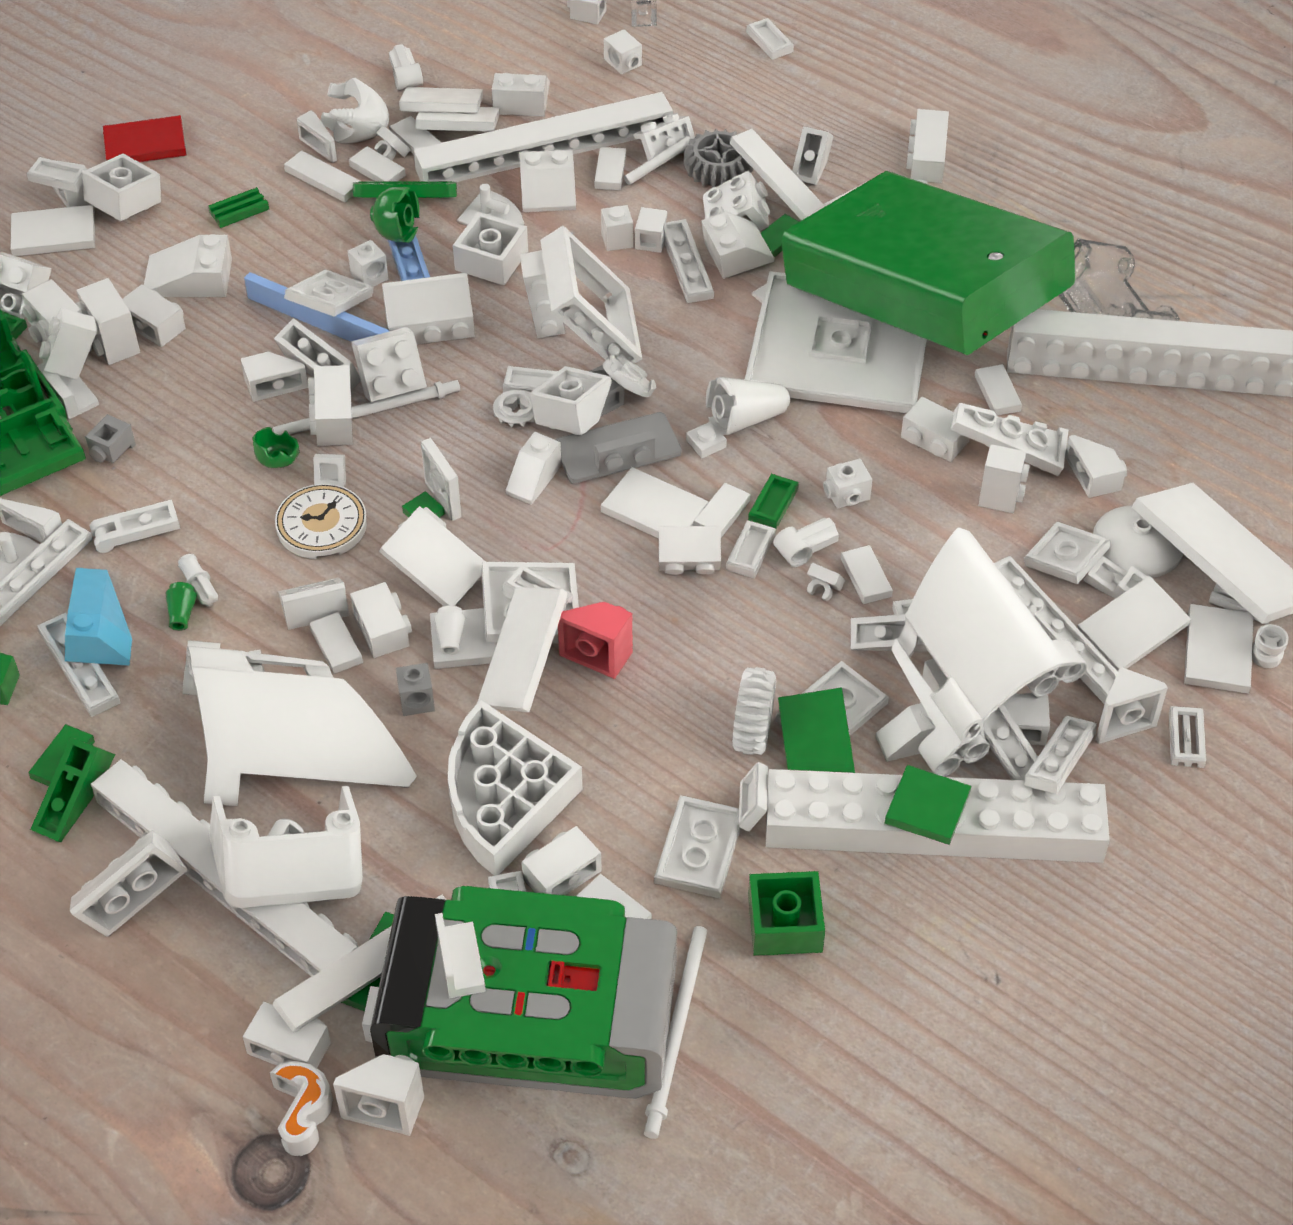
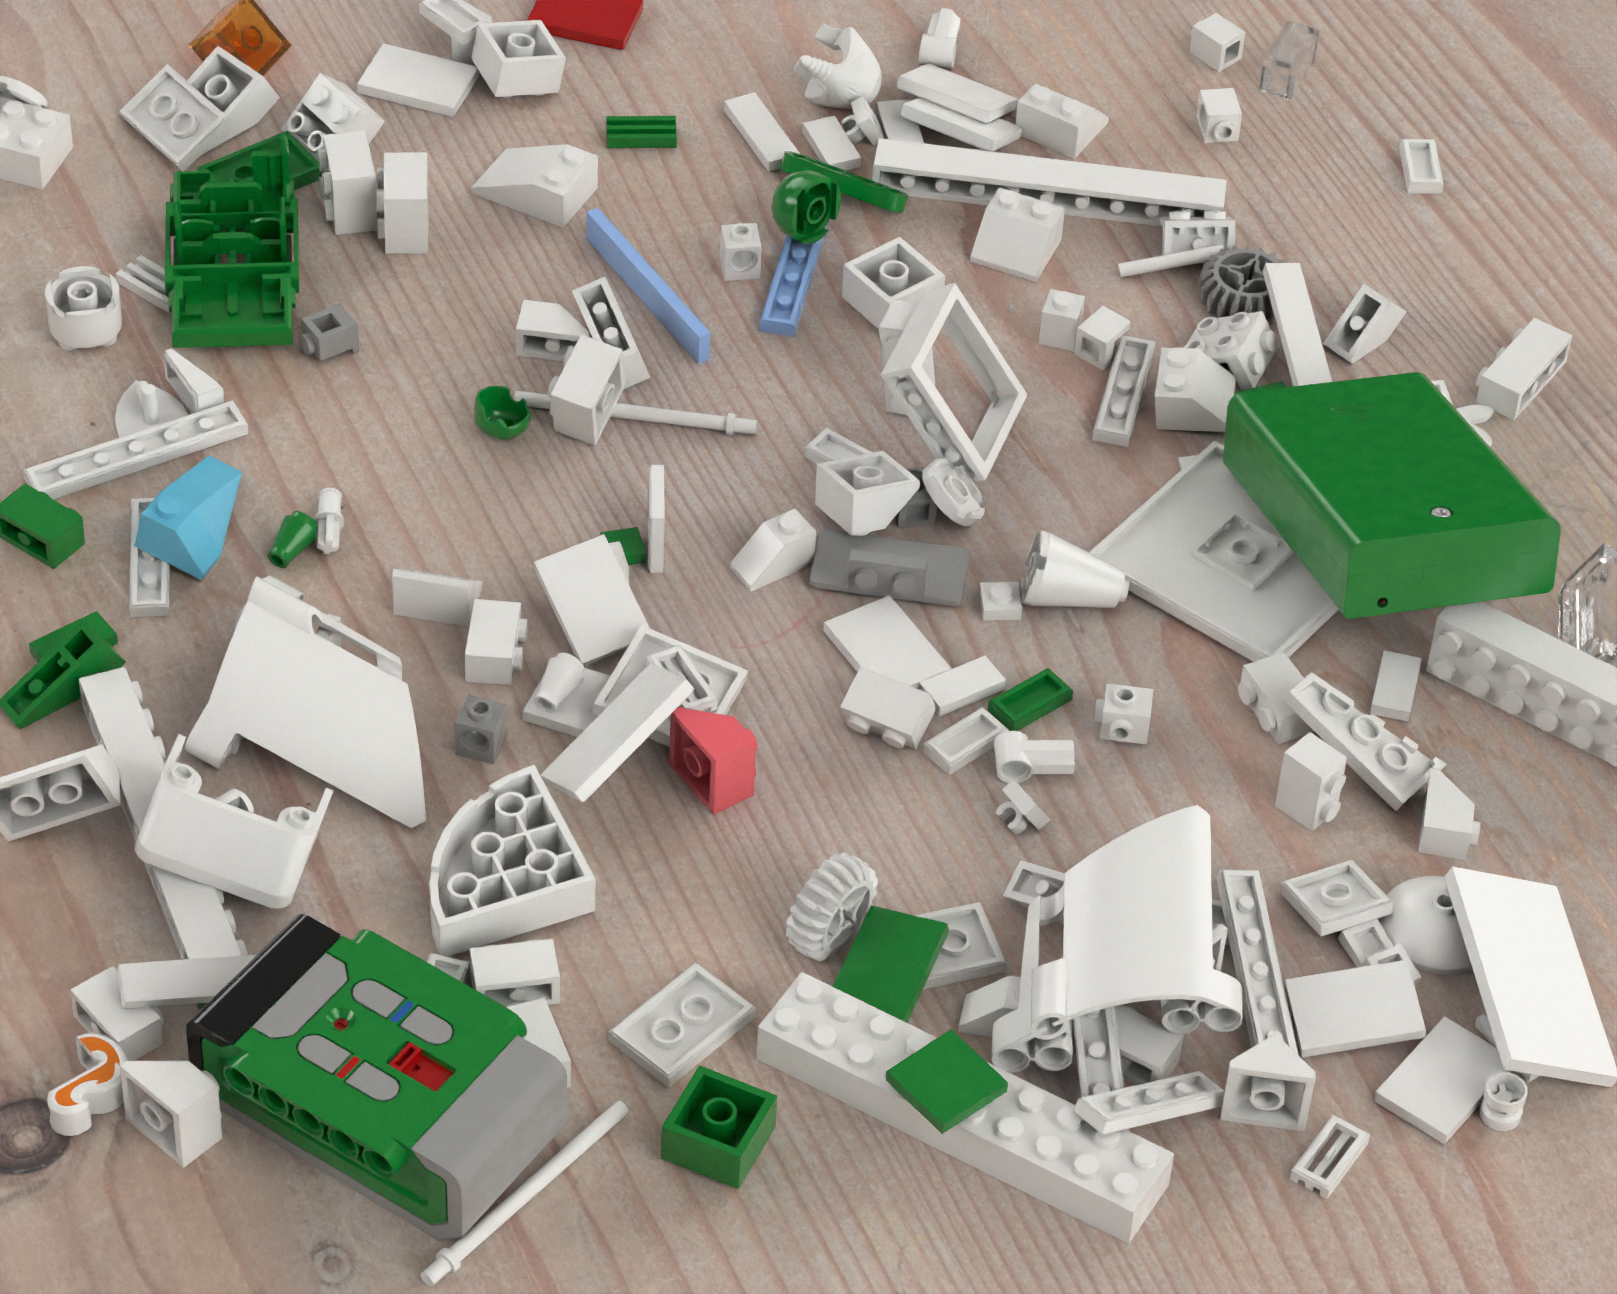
camera: 25 degrees right, 5 degrees down
(68, 343) = (341, 209): white brick -> none
(71, 392) = (321, 263): white panel -> none
(134, 525) = (298, 435): white plate -> none
(154, 315) = (463, 215): white brick -> none
(316, 135) = (781, 80): white slope -> none
(321, 521) = (503, 513): tile -> none
(329, 292) = (672, 265): white tile -> none
(329, 469) = (545, 461): white tile -> none
(336, 642) = (433, 647): white tile -> none
(389, 364) = (682, 370): white brick -> none
(430, 307) = (771, 328): white slope -> none
(460, 958) = (311, 992): white panel -> none
(491, 204) = (937, 243): white shield -> none
(509, 401) = (796, 468): white gear -> none
(610, 168) = (1108, 249): white tile -> none
(753, 796) = (768, 995): white tile -> none
(866, 574) = (1079, 823): white tile -> none

